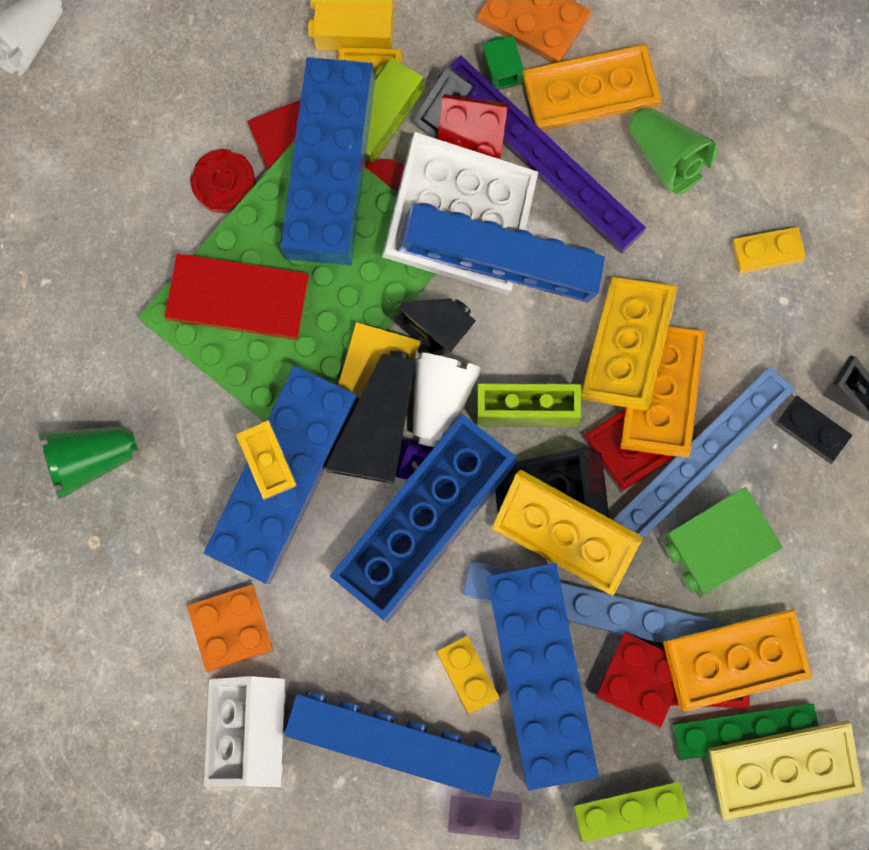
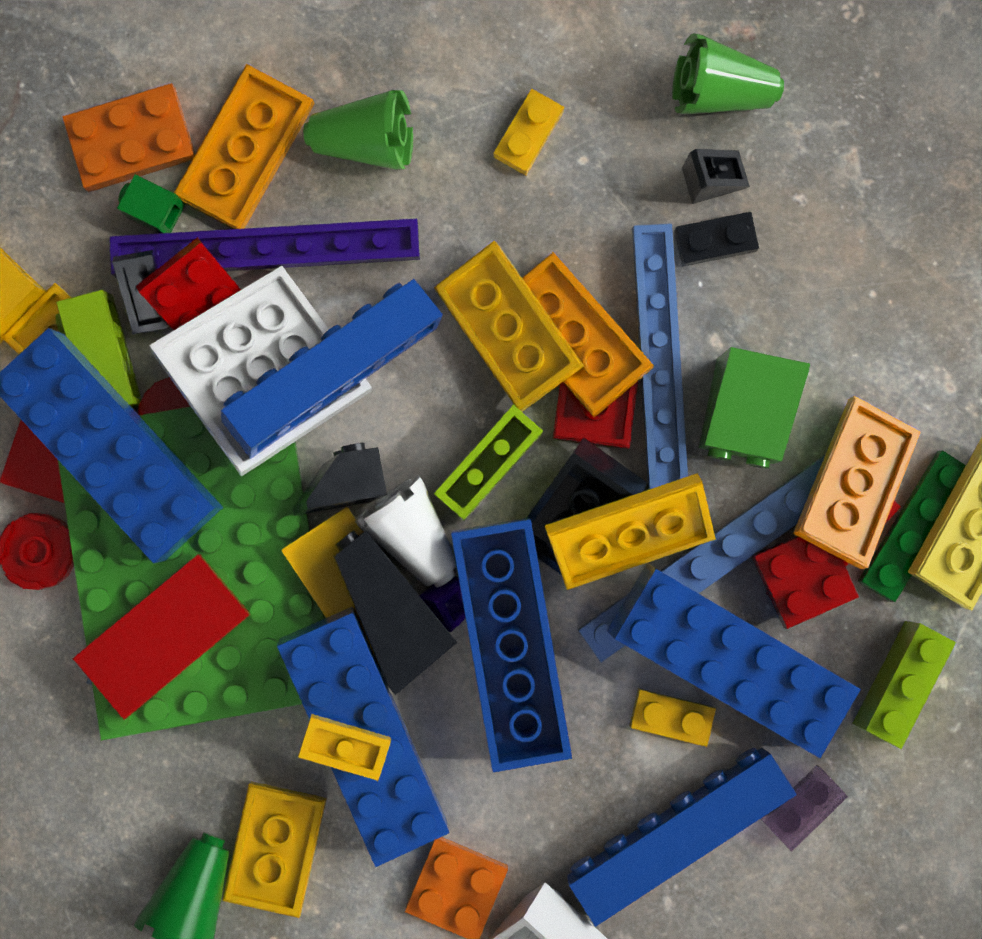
camera: 55 degrees left, 10 degrees up
(157, 488) = (274, 849): none -> yellow tile

